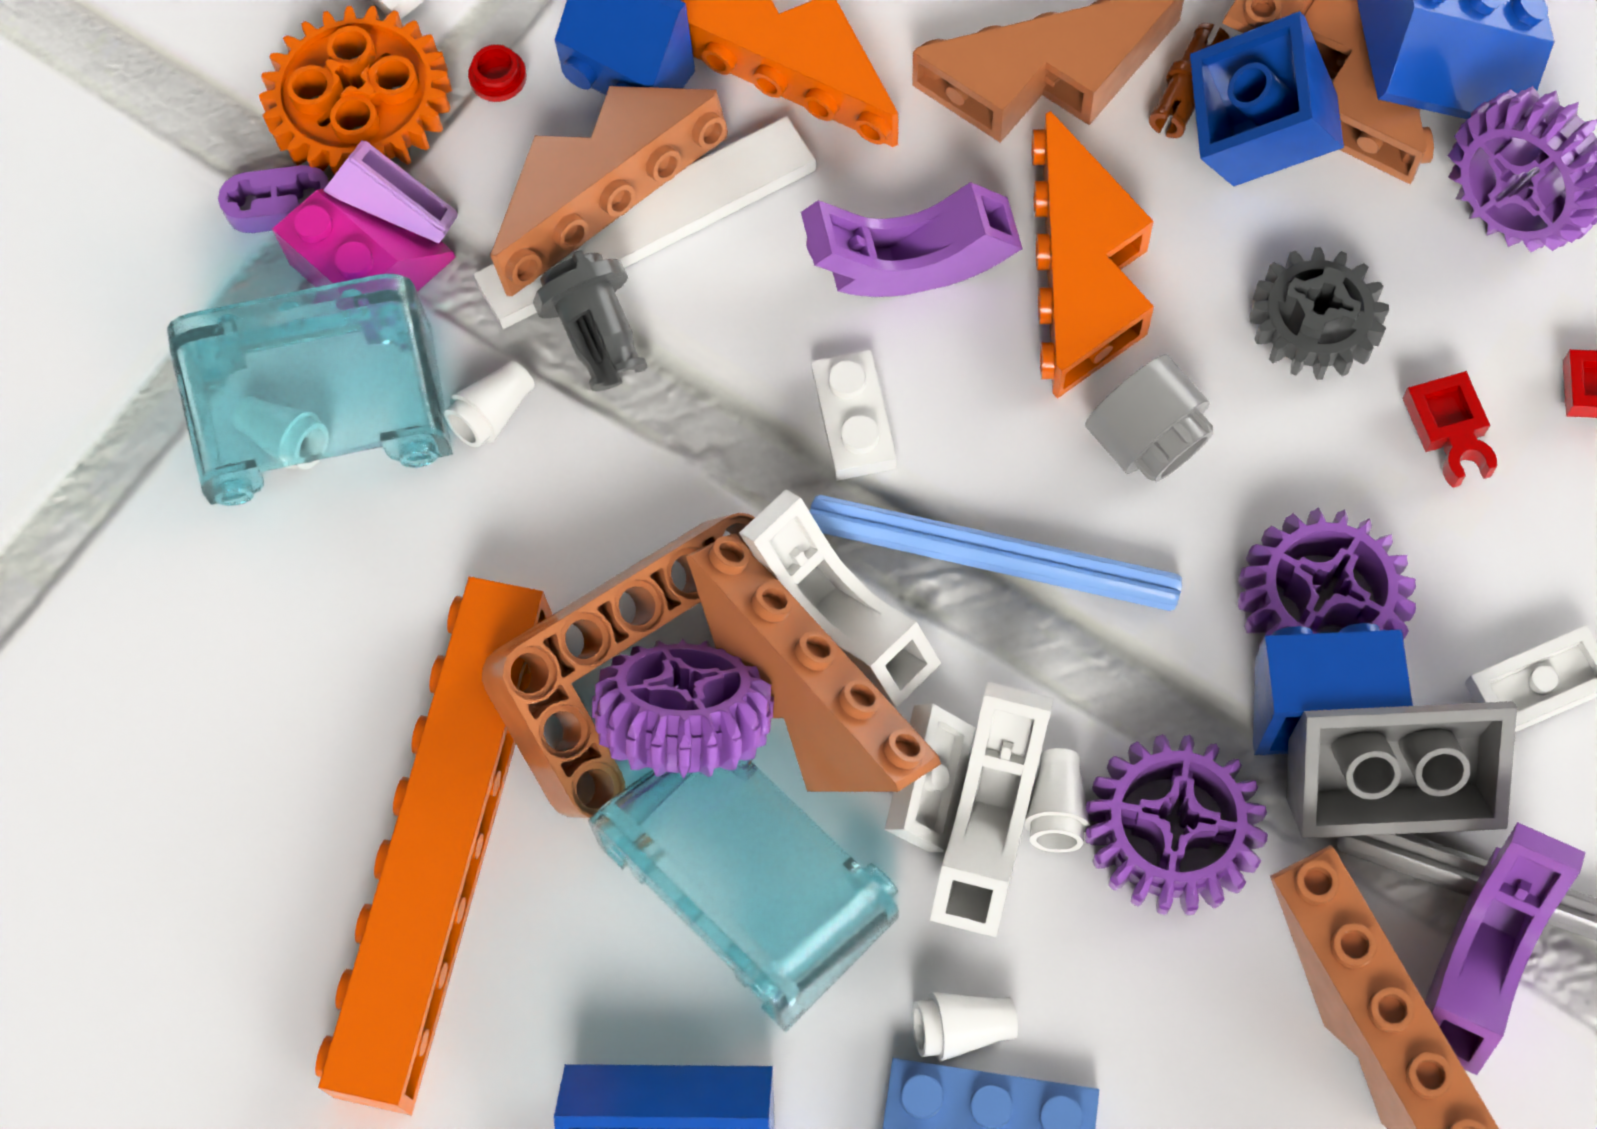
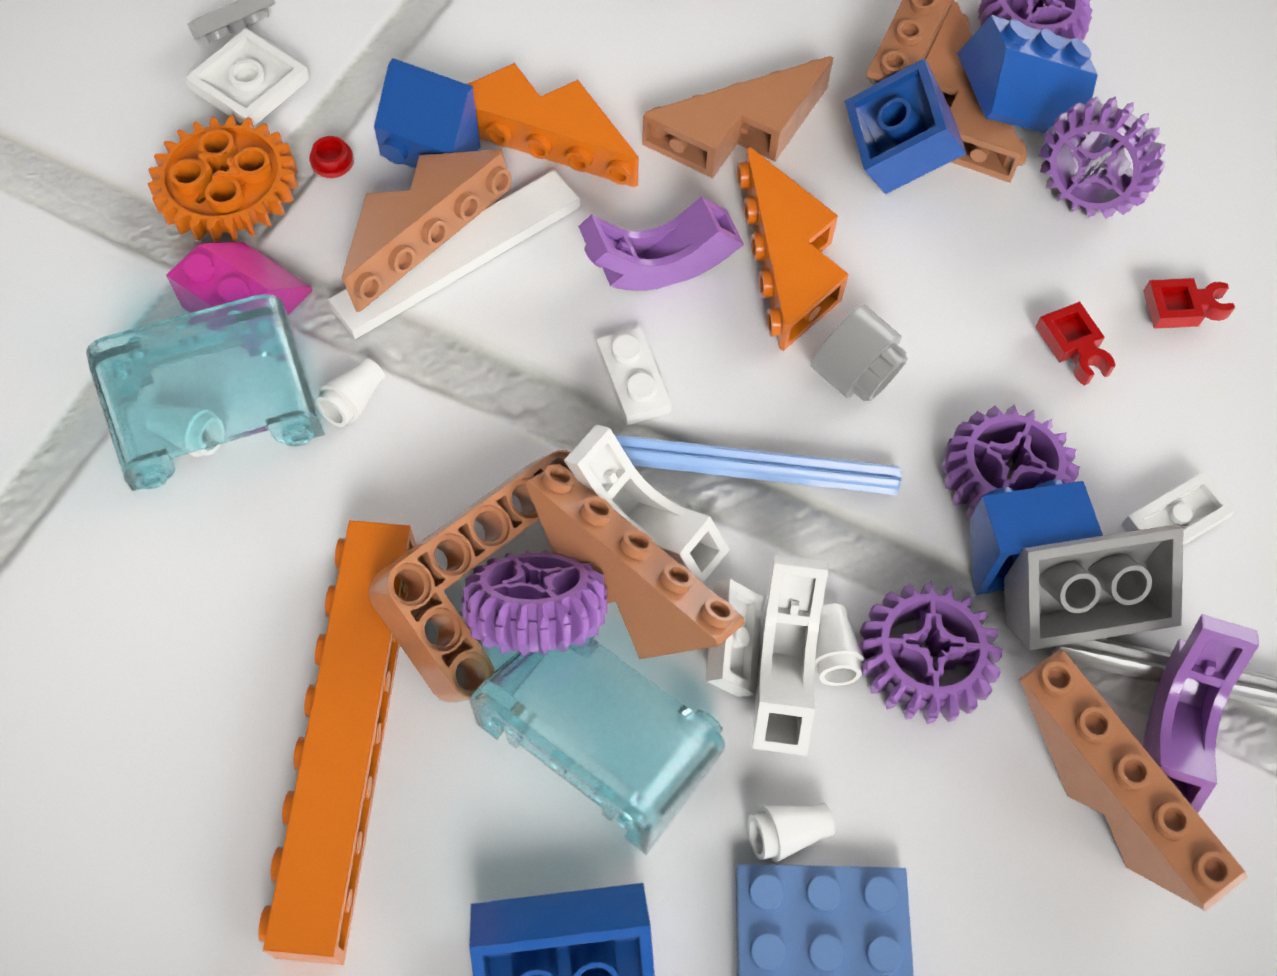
camera: 15 degrees left, 5 degrees down
(275, 192) = (162, 254): medium lavender beam -> none
(387, 191) = (250, 240): lavender slope -> none
(585, 301) = (417, 303): dark grey piece -> none
(1179, 94) = (839, 129): dark orange pin -> none
(1349, 306) = (966, 272): dark grey gear -> none

